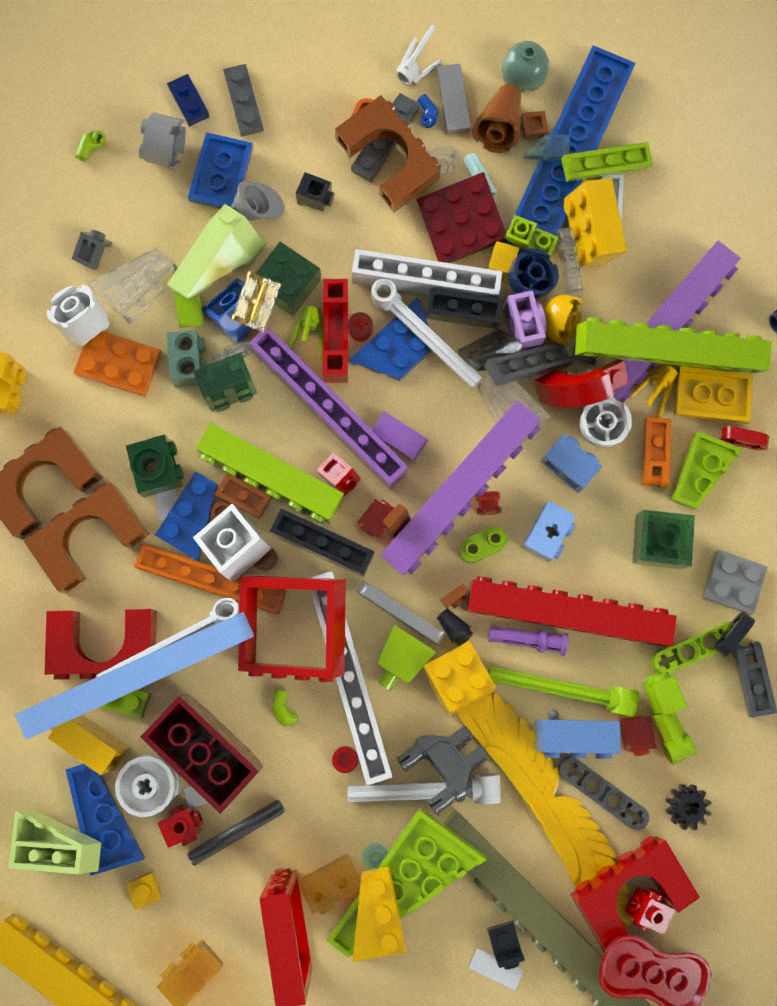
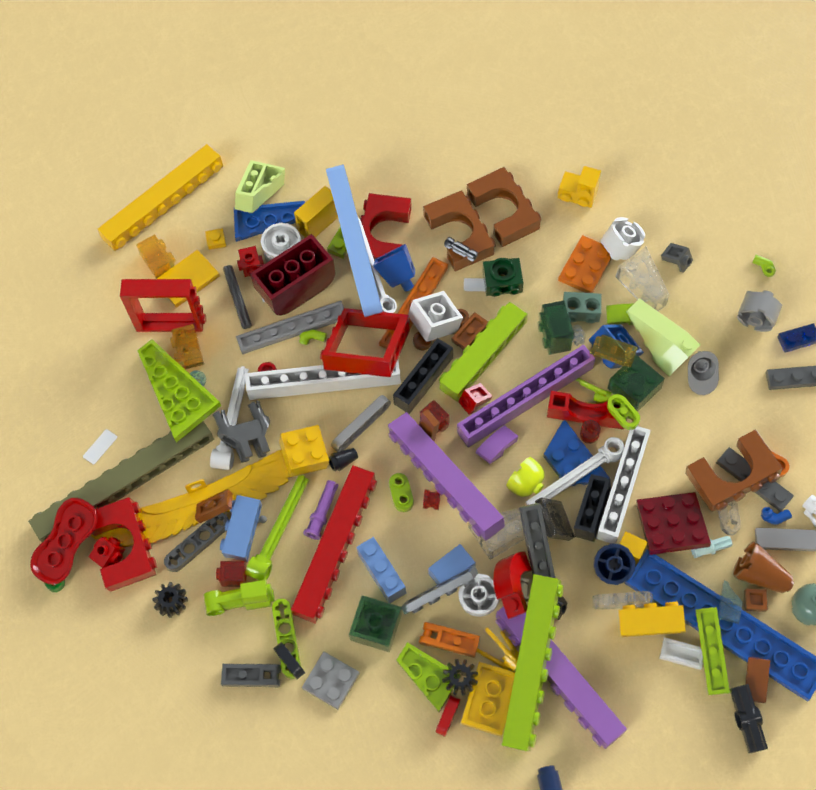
camera: 110 degrees right, 15 degrees down
(124, 524) = (461, 249): none -> axle
(164, 610) = (396, 267): none -> blue torso
(189, 515) = (465, 296): blue wing -> none
(216, 917) = (195, 268): none -> yellow tile
(219, 170) = (735, 350): blue plate -> none
(272, 742) = (289, 327): none -> light grey tile
(312, 186) = (707, 414): black brick -> none
(339, 280) = (623, 413): none -> lime plate
(378, 918) = (157, 368): yellow wing -> none
(402, 657) = (330, 417): lime torso -> none
(443, 388) = (527, 478): none -> neon yellow cylinder
(455, 597) = (364, 461): dark orange plate -> none
(505, 945) = (113, 453): black bracket -> none
(525, 320) = (573, 550): lavender brick -> none
(526, 235) = (647, 570): lime slope -> none
(550, 517) = (397, 530): light blue brick -> none
(561, 780) = (214, 506): none -> dark orange plate
(562, 318) = (577, 583): yellow cylinder -> none
(593, 547) = (381, 570): none -> medium blue brick
(612, 467) = (433, 594): none -> plate
(626, 115) = (757, 678): none -> dark orange tile
(671, 121) = (748, 718): none -> black piece
(710, 437) = (465, 671): none -> black gear

